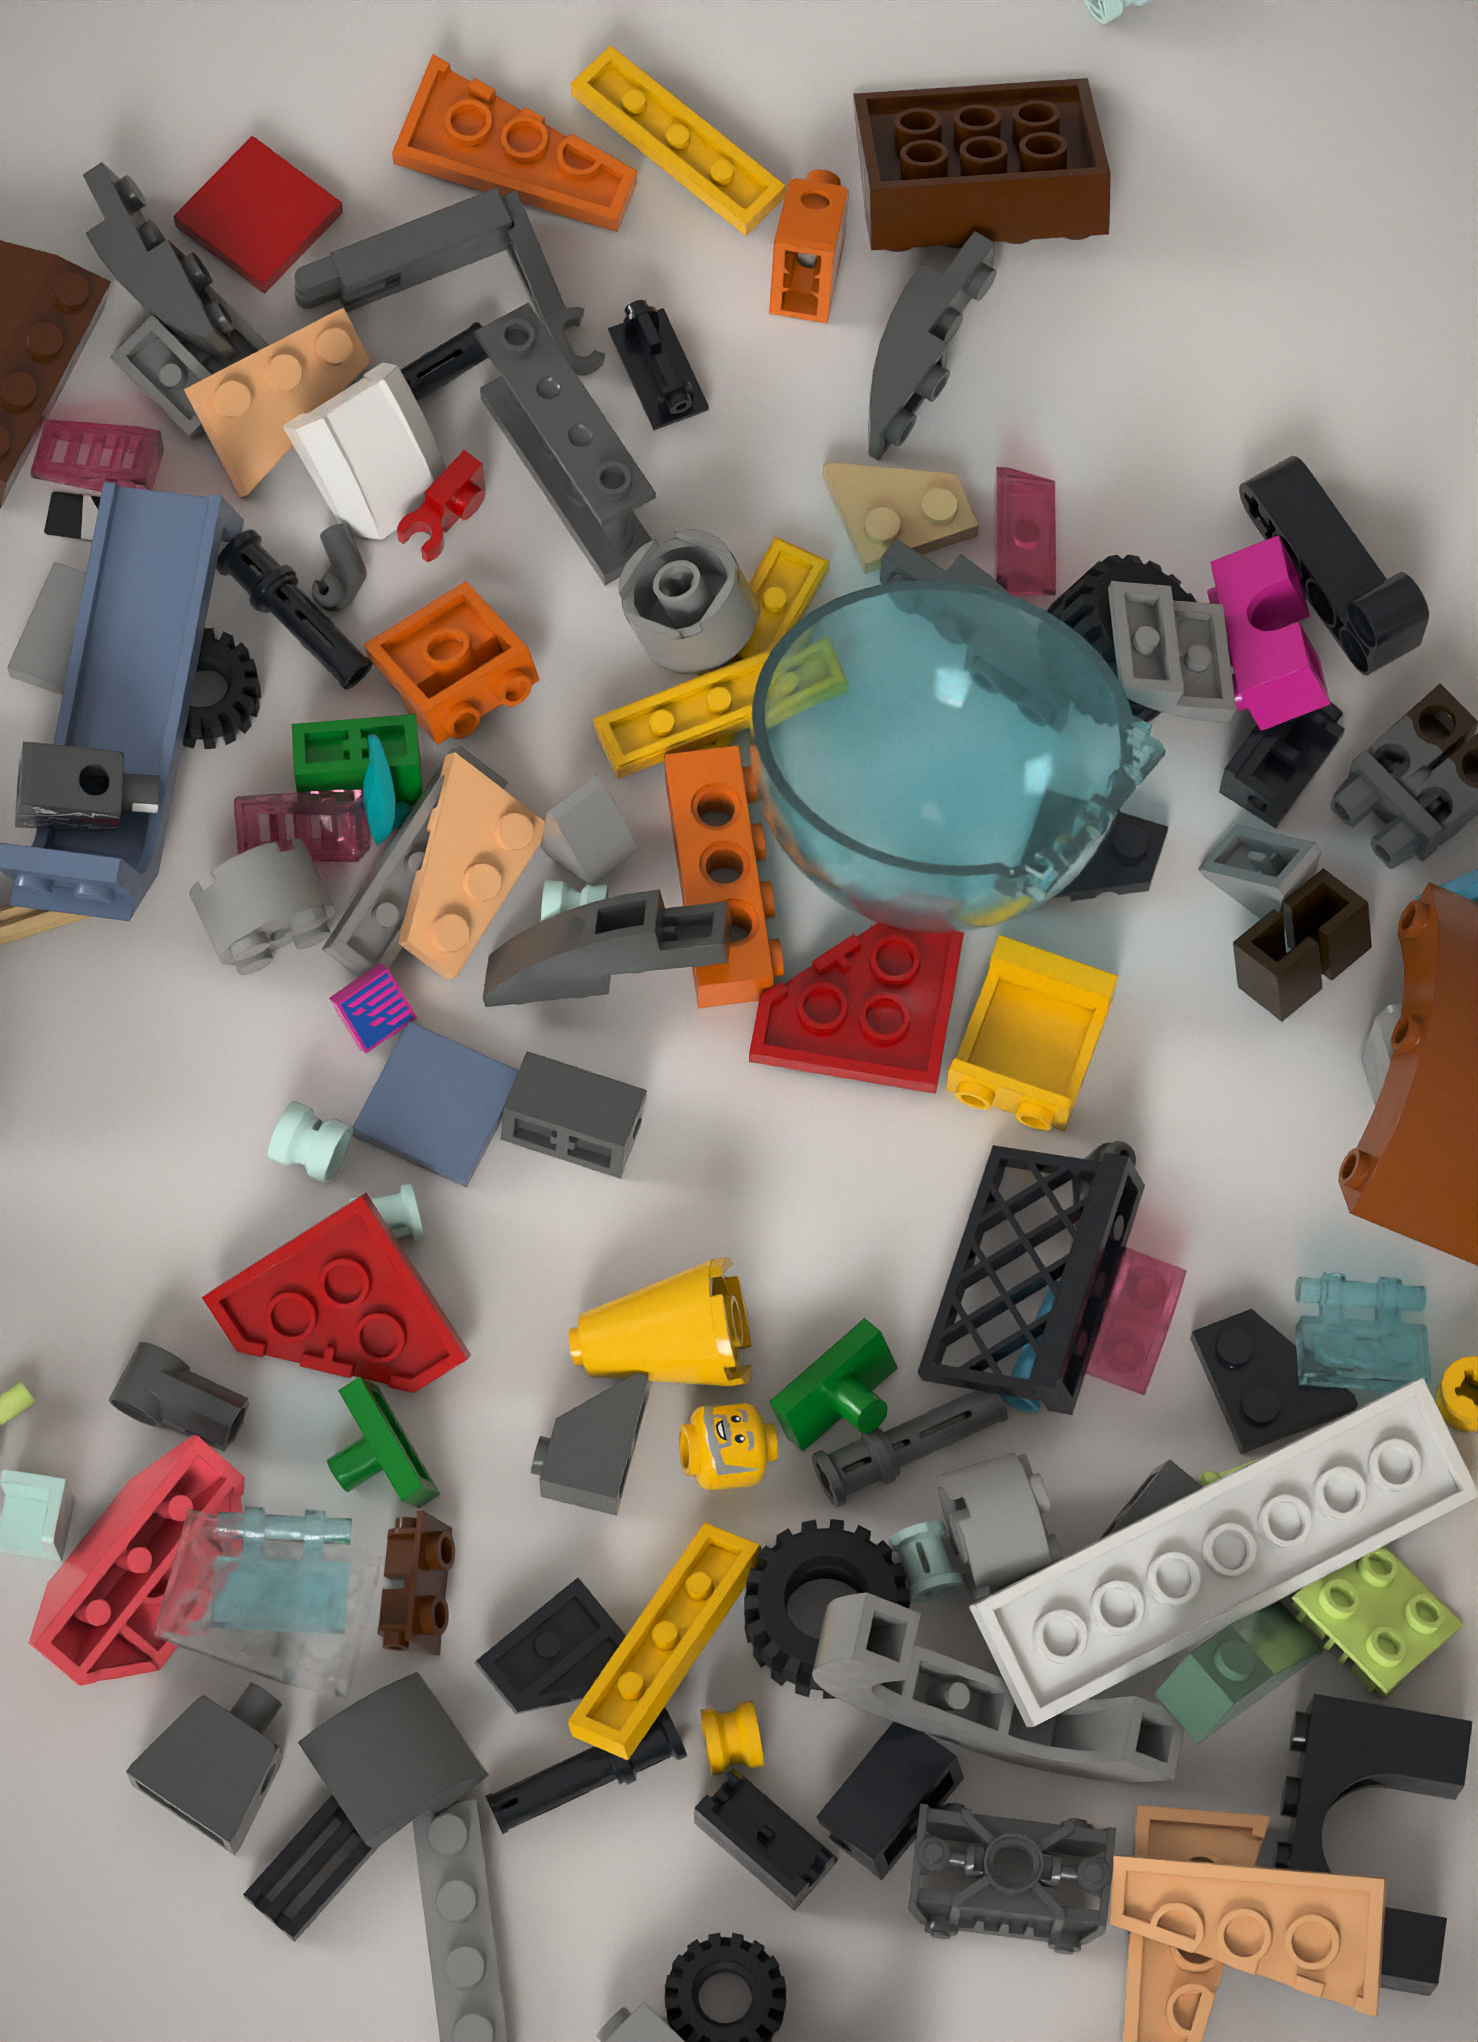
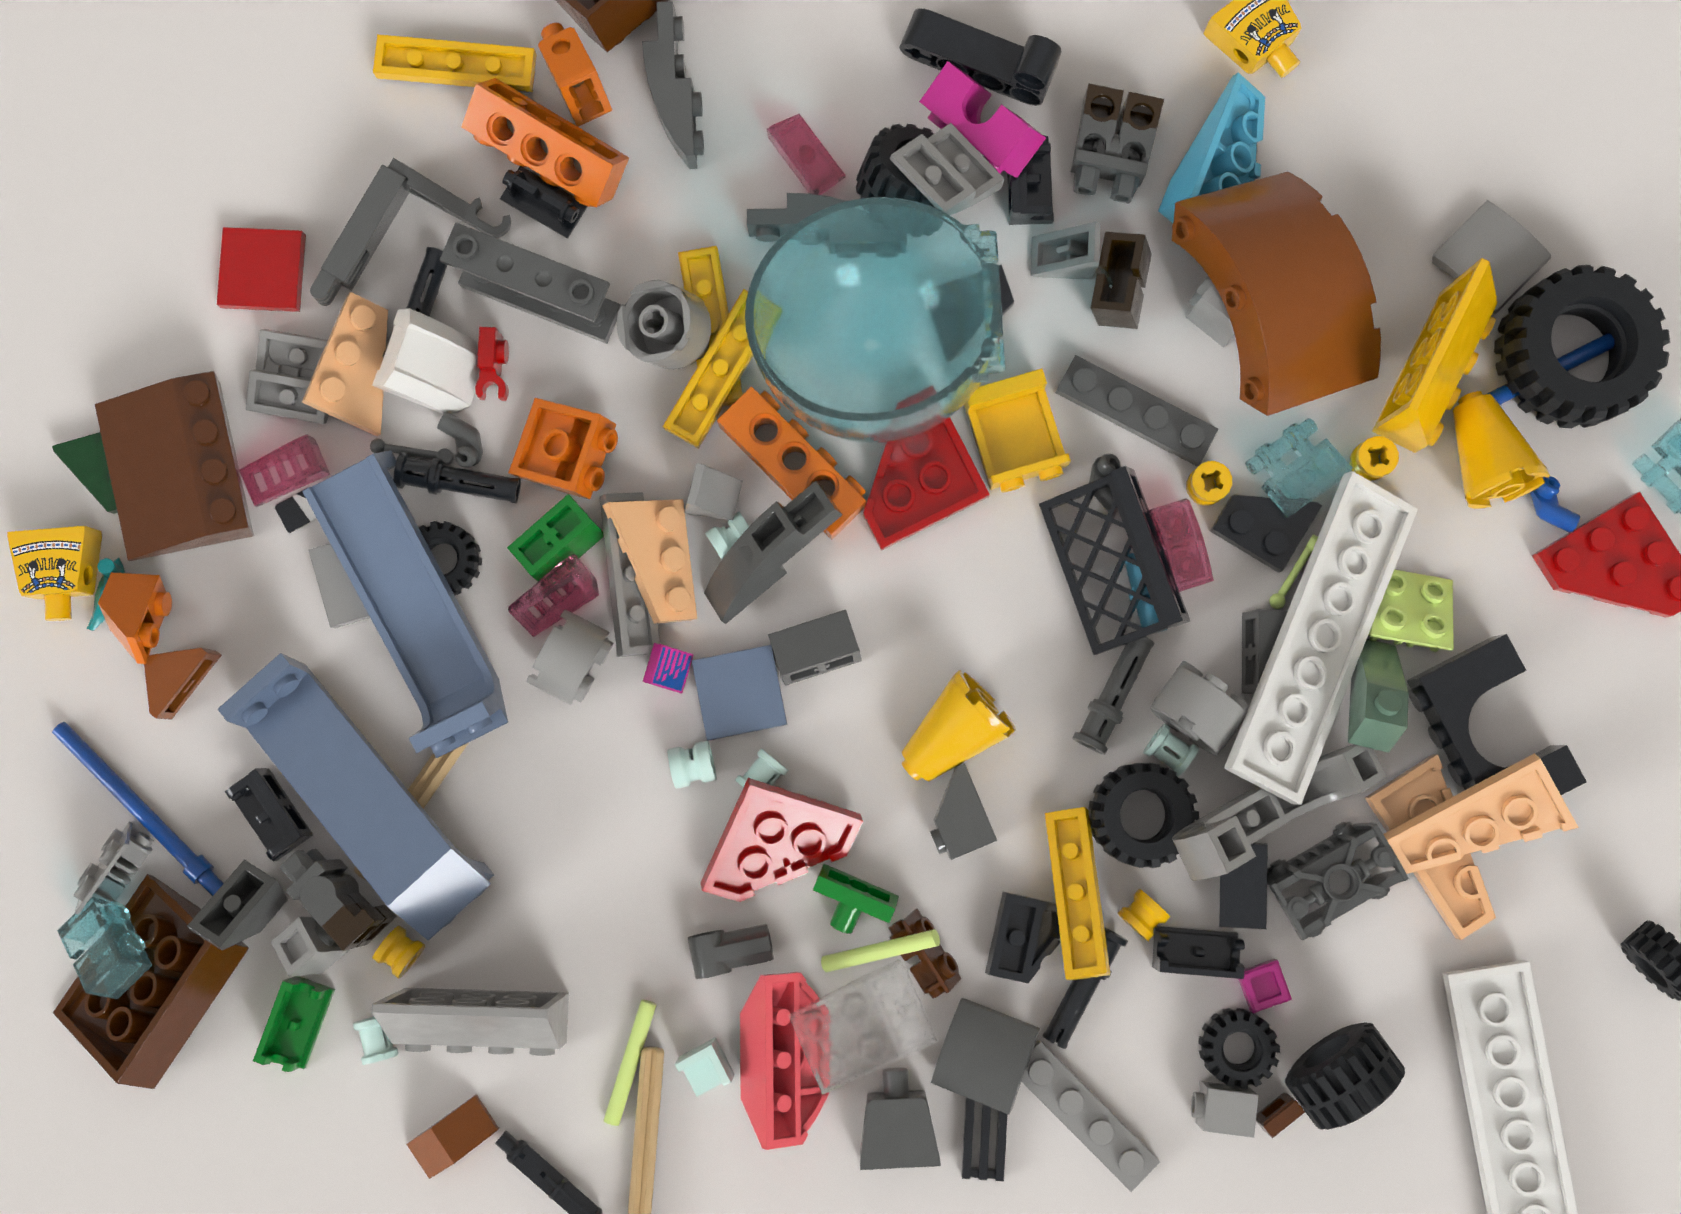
camera: 30 degrees left, 15 degrees up
(52, 794) = (407, 680): dark grey torso -> none
(154, 268) = (229, 346): dark grey slope -> none
(281, 1592) = (871, 1028): clear light blue plate -> none
(303, 571) = (379, 445): none -> dark grey hinge
(376, 1532) = (880, 950): none -> yellowish green bar
(379, 802) = (587, 555): teal bar -> none
(482, 142) = (356, 139): orange wing -> none
(727, 1446) = (1028, 766): yellow head -> none
(759, 368) = (600, 163): none -> orange brick
(820, 1950) = (1264, 986): none -> dark pink tile
(837, 1388) = (1061, 693): green tile -> none
(890, 503) = (729, 190): tan wing -> none
(1207, 1124) = (1137, 411): none -> dark grey plate
(1230, 1287) = (1203, 489): none -> yellow wheel

